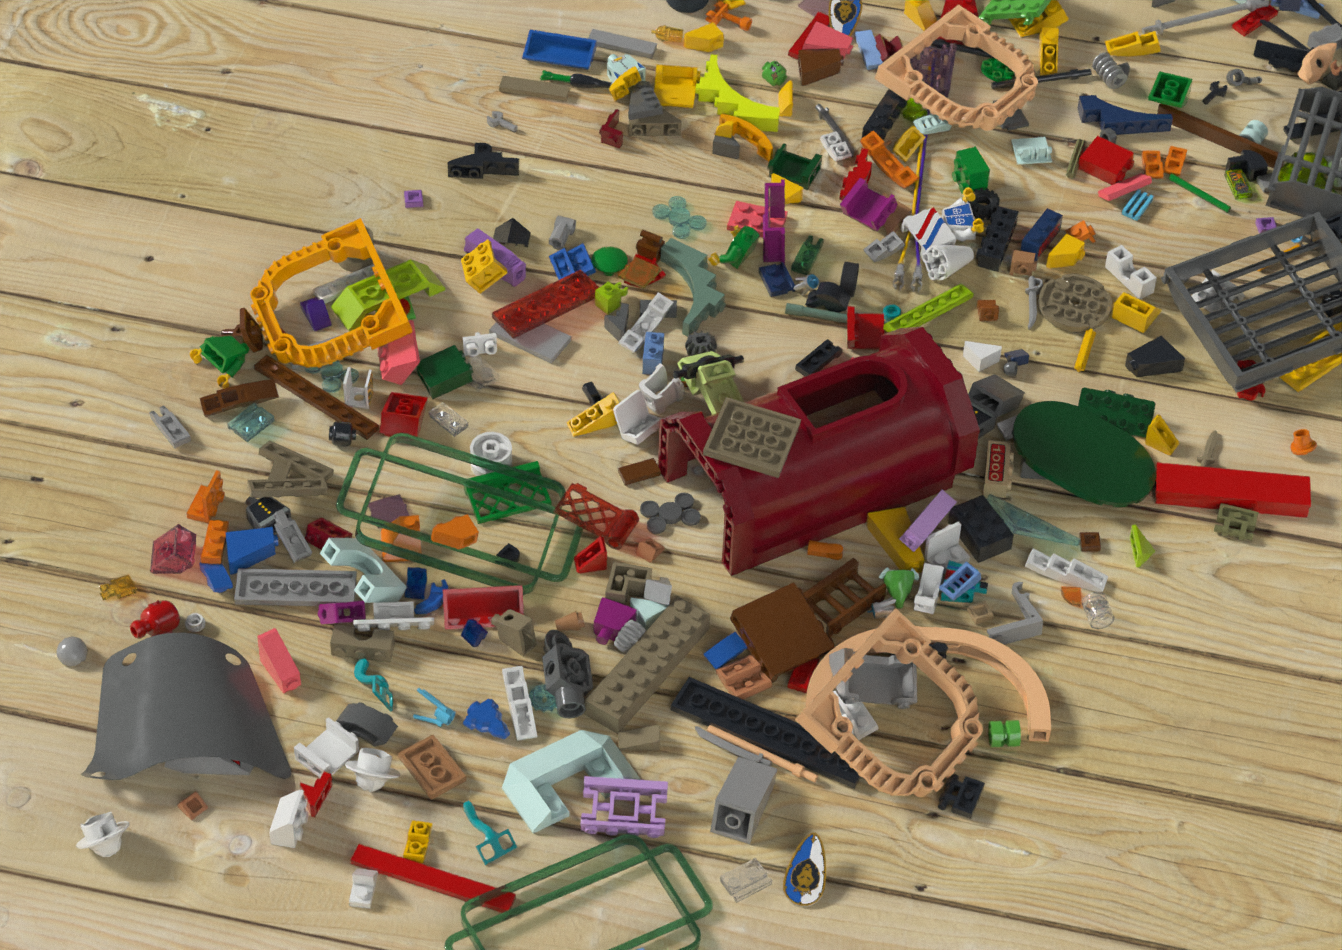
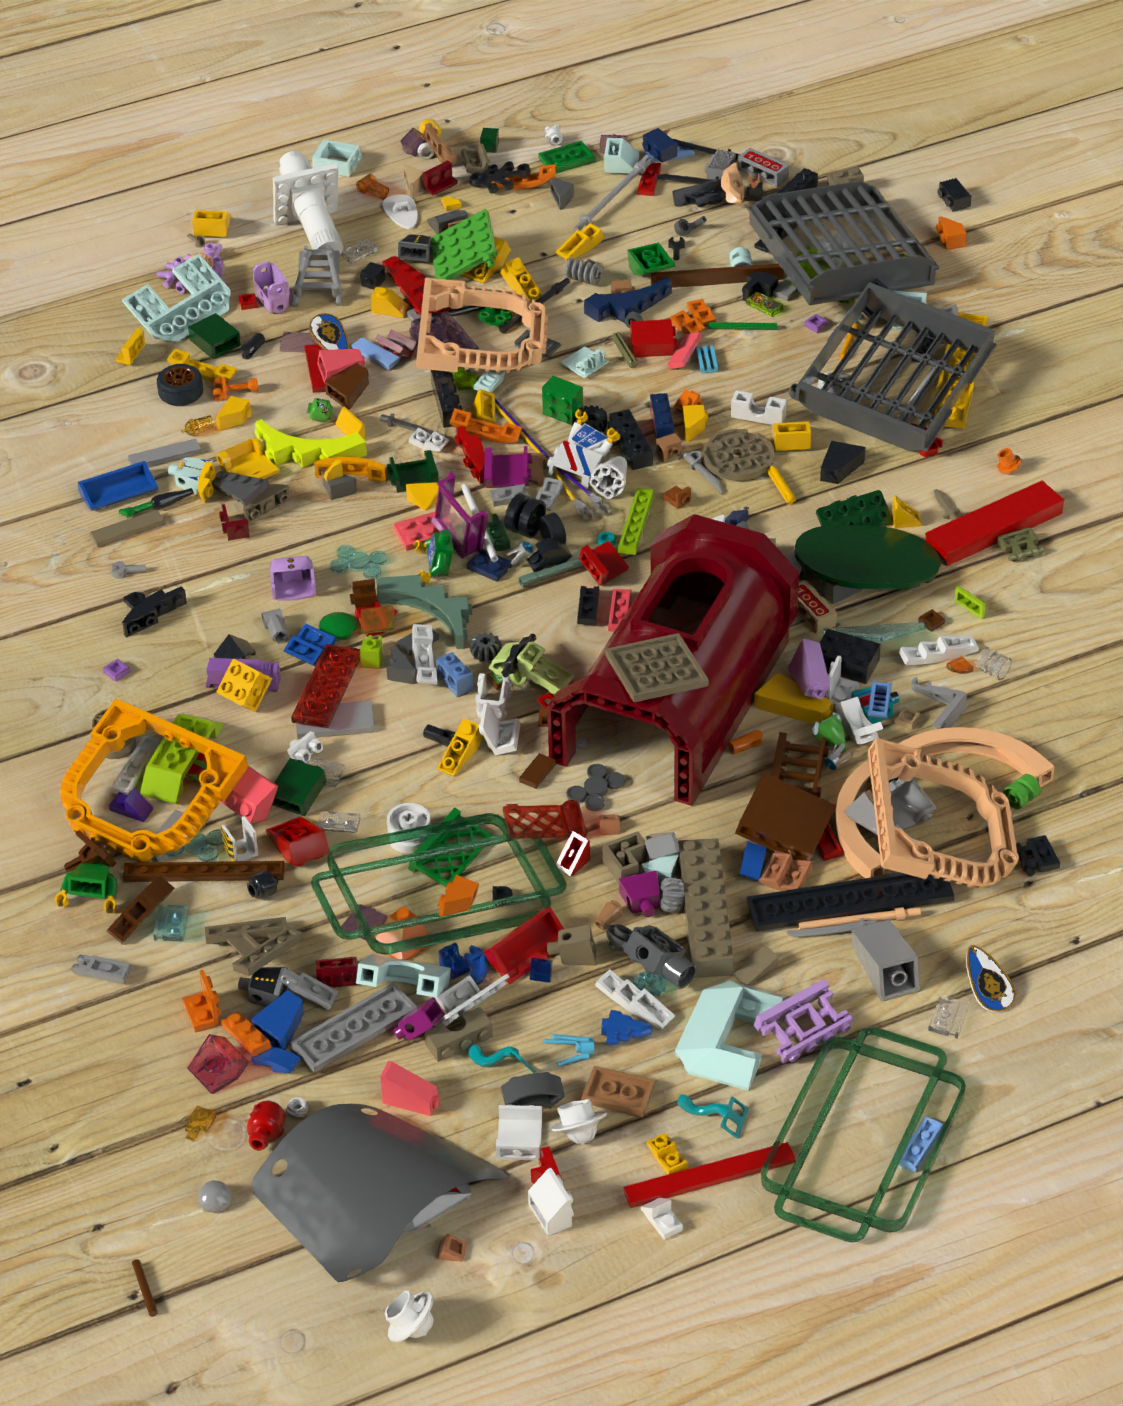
camera: 35 degrees left, 5 degrees down
(610, 201) = (292, 578): none -> lavender piece
(802, 239) = (474, 510): none -> white piece
(837, 249) = (523, 515): none -> black wheel
(852, 229) = (504, 495): none -> light grey plate
(1125, 101) = (621, 286): none -> medium nougat brick

